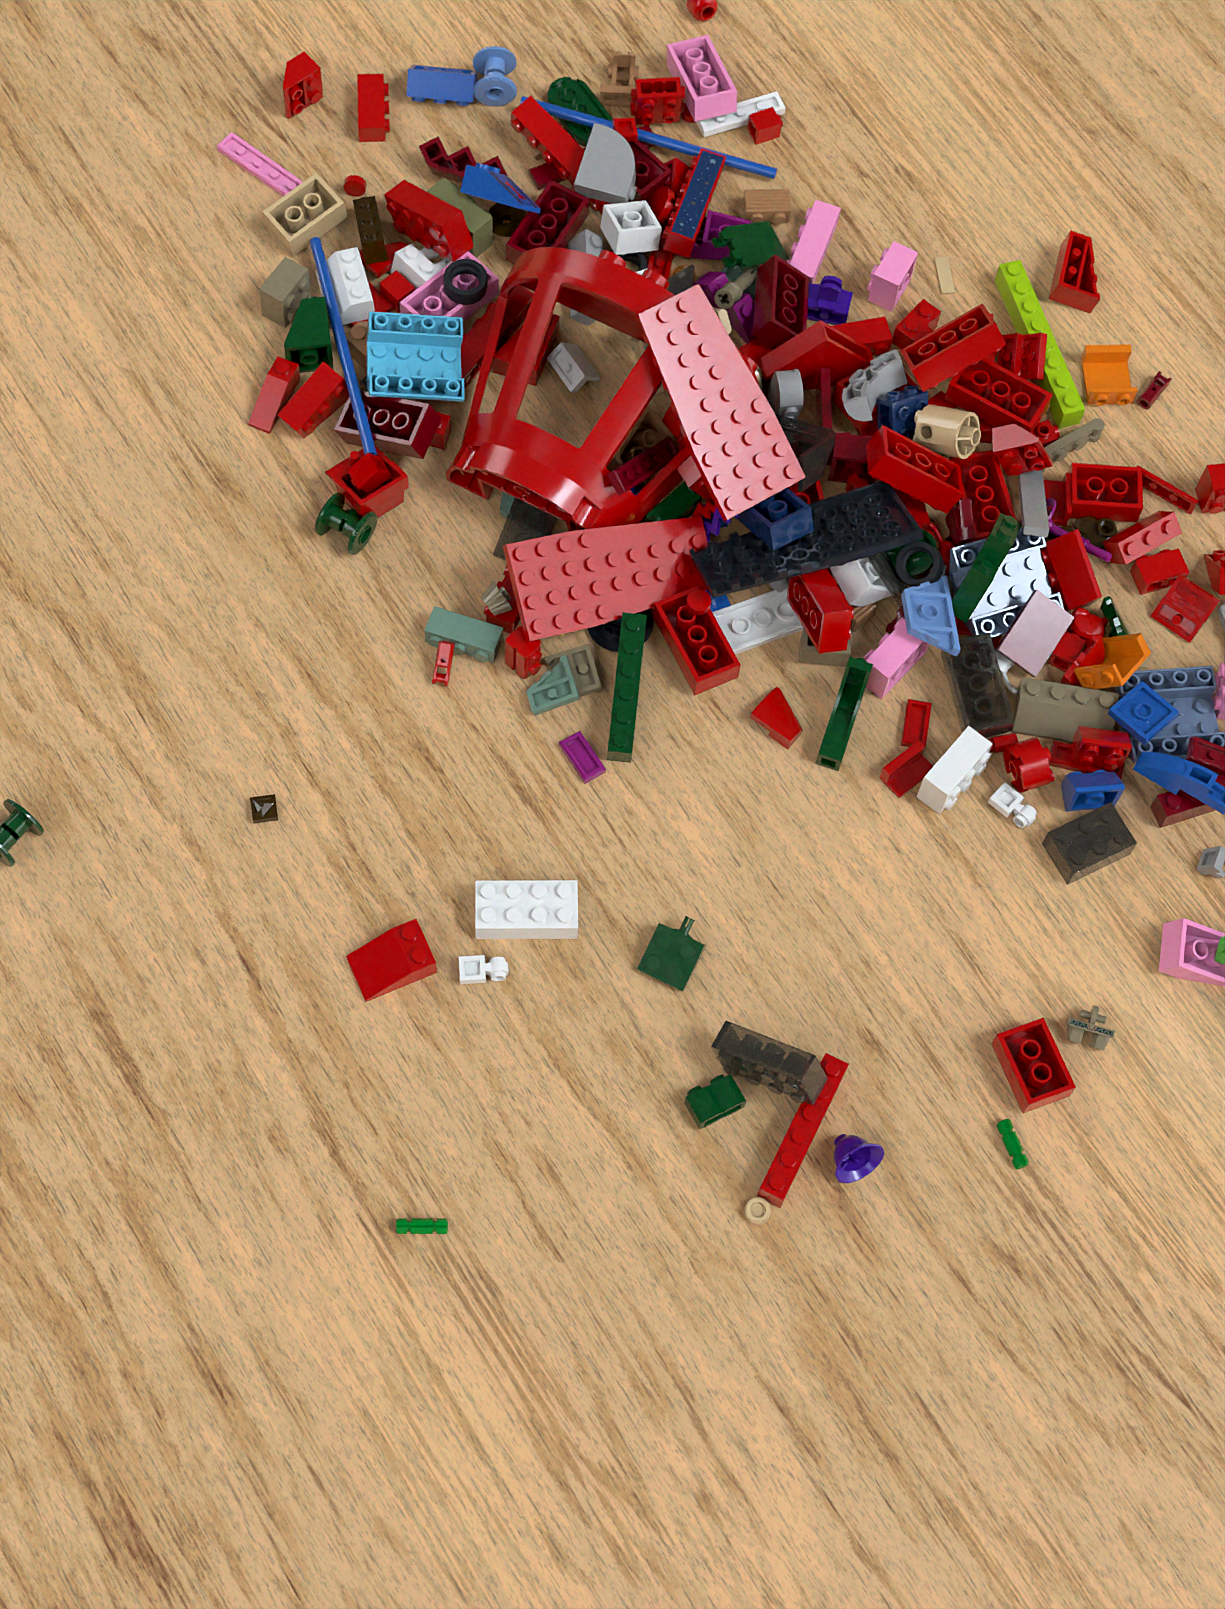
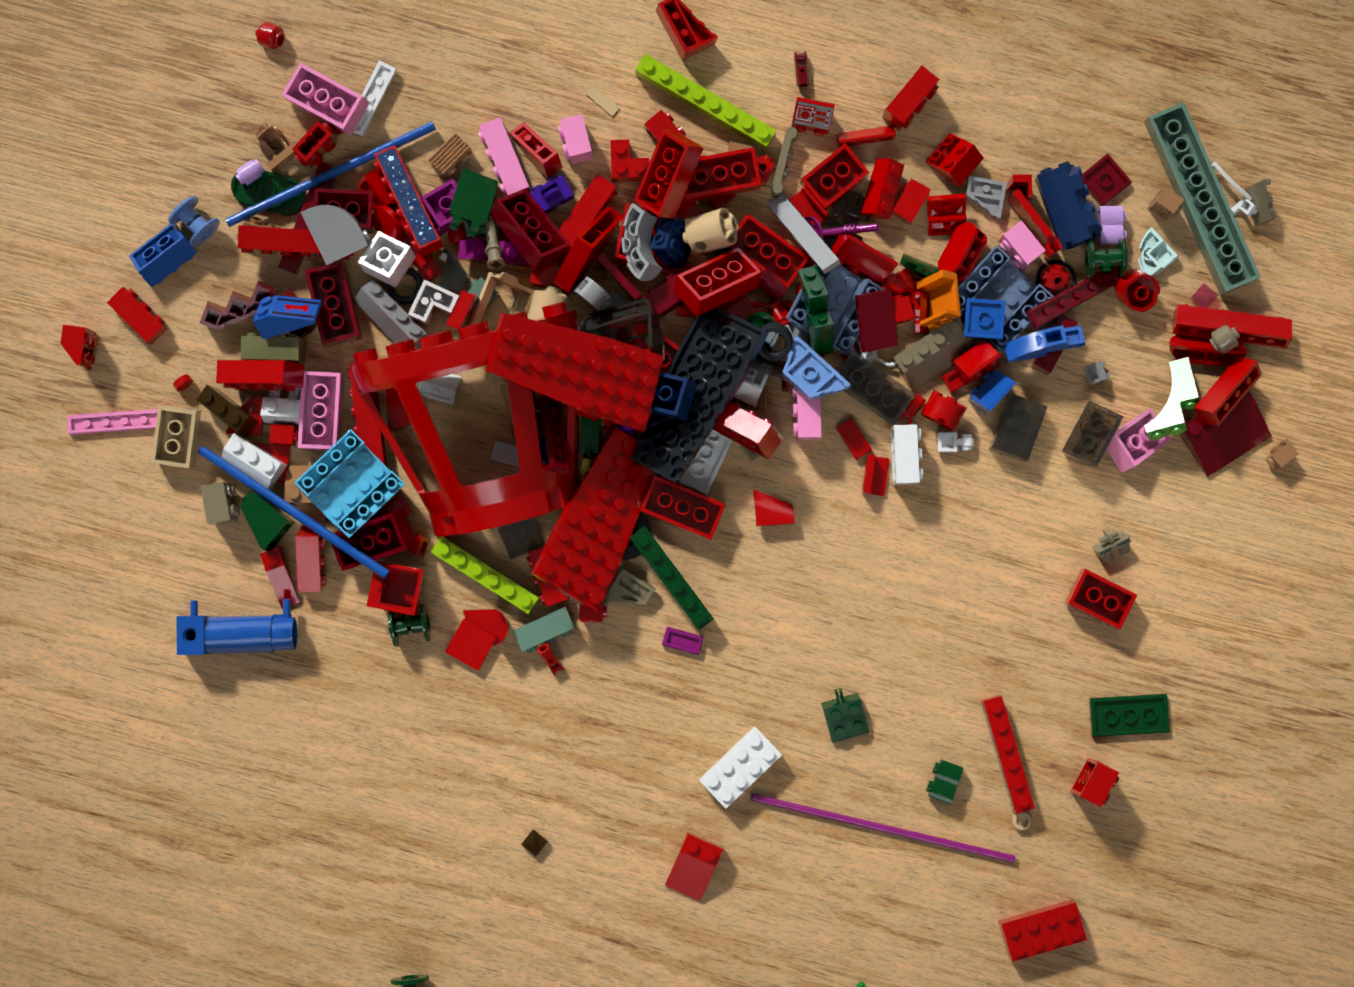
camera: 30 degrees left, 20 degrees up
(155, 378) = (235, 633): none -> blue piece
(369, 473) = (395, 585): red brick -> none
(383, 592) = (470, 644): none -> red tile
(412, 591) = (491, 621): none -> red piece
(423, 472) = (420, 546): none -> red tile
(457, 544) = (485, 575): none -> lime brick
(465, 266) = (311, 398): black tyre -> none
(474, 969) = (743, 828): white plate -> none
(496, 599) = (547, 596): dark tan piece -> none
(553, 689) = (628, 615): sand green wing -> none
(580, 80) = (249, 172): none -> lavender brick
(612, 1096) = (882, 828): none -> magenta piece
(626, 128) = (317, 190): red tile -> none
(679, 1334) = (1042, 930): none -> red brick
(698, 602) = (666, 487): red tile -> none
(709, 265) = (455, 236): none -> red tile
(764, 125) = (394, 93): red brick -> none
(769, 1063) = (960, 740): clear smoke brick -> none
(844, 713) = (812, 480): dark green arch -> none
(849, 261) = (536, 149): none -> red slope
(855, 1158) = (1047, 743): dark purple hat -> none
(869, 1226) = (1095, 782): none -> red brick
(963, 1207) = (1129, 715): none -> dark green tile
(1012, 1144) = (1125, 653): green axle -> none
(1018, 450) = (763, 202): red slope -> none
(1024, 355) = (705, 125): red slope -> none
(1107, 374) = (765, 85): orange panel -> none
(1131, 427) = (812, 116): none -> red slope
(1158, 903) = (1092, 435): none -> clear smoke slope
(1176, 647) = (963, 250): none -> red brick

